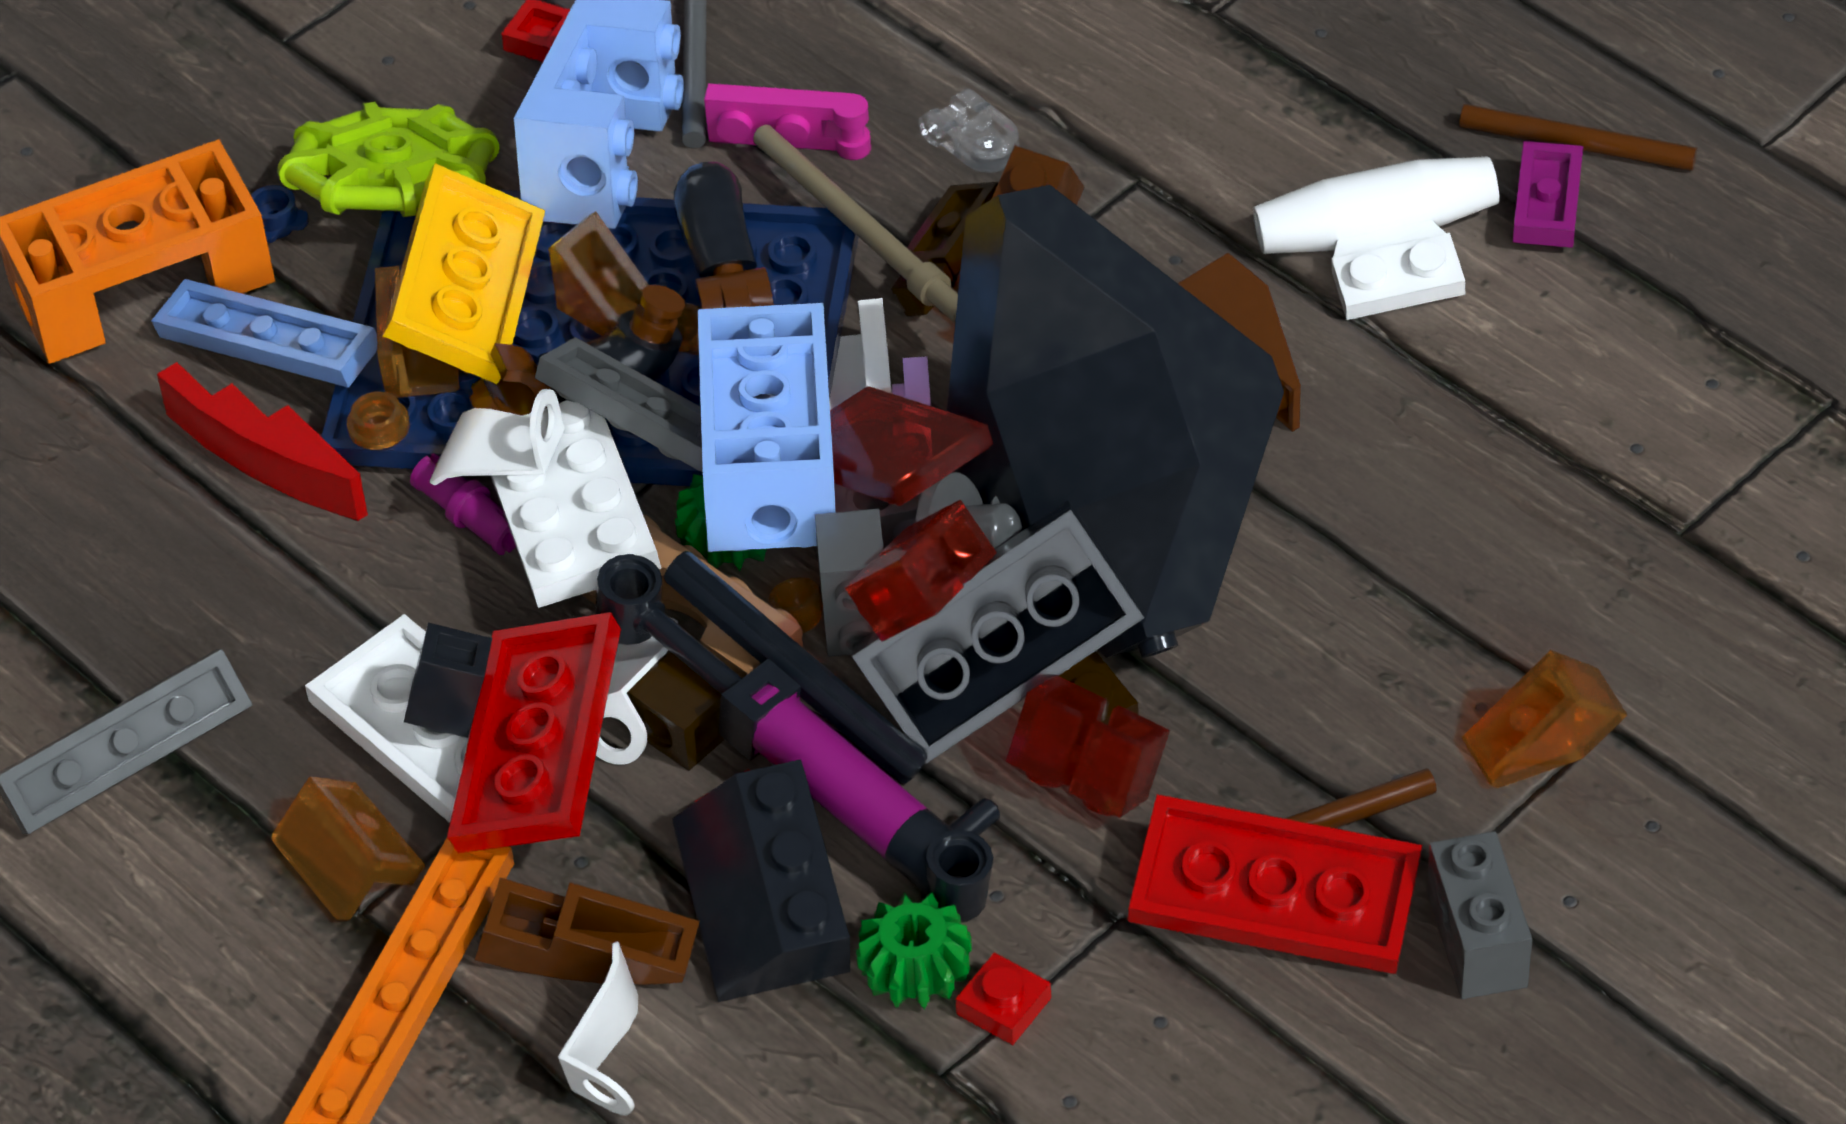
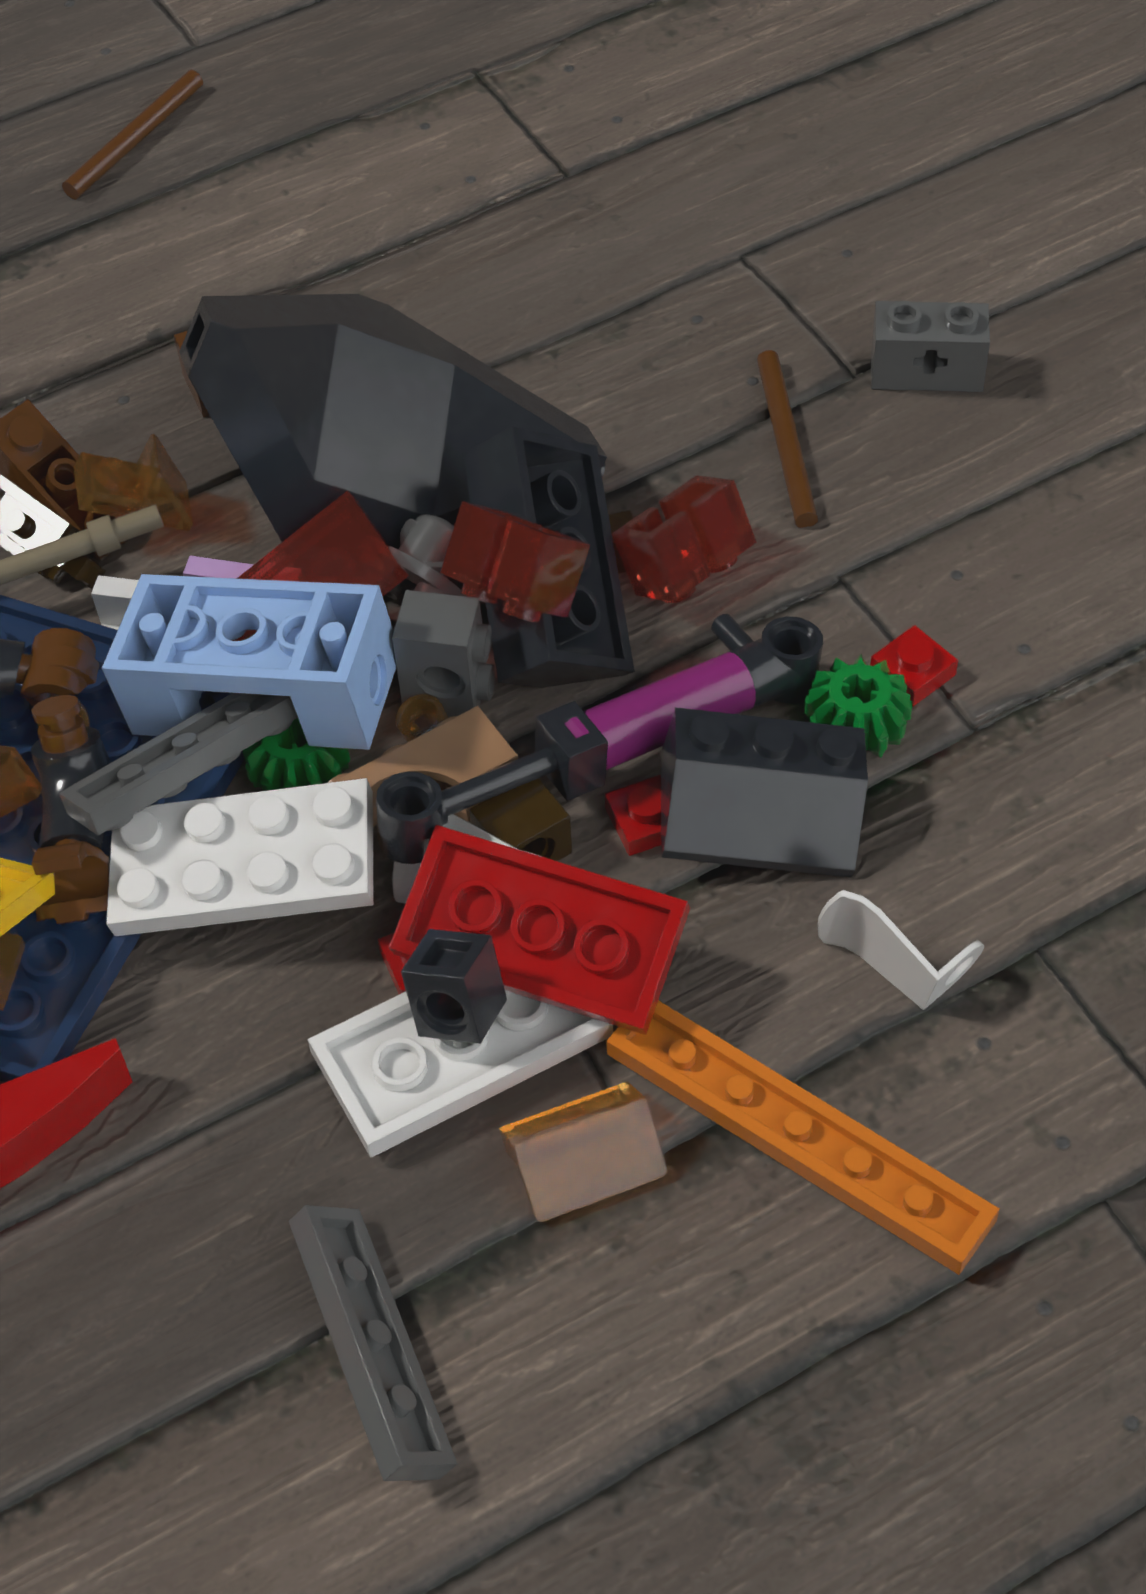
camera: 75 degrees left, 5 degrees up
(377, 421) = (41, 998): clear orange plate -> none
(465, 505) = (173, 967): magenta pin -> none
(502, 442) = (152, 898): white piece -> none
(574, 935) = (765, 957): reddish brown slope -> none
(818, 684) = (513, 719): black axle -> none
(1275, 883) = (858, 460): red plate -> none
(1383, 229) = (171, 252): white plate -> none
(1544, 721) = (747, 273): clear orange slope -> none
(1548, 194) = (193, 156): magenta plate -> none

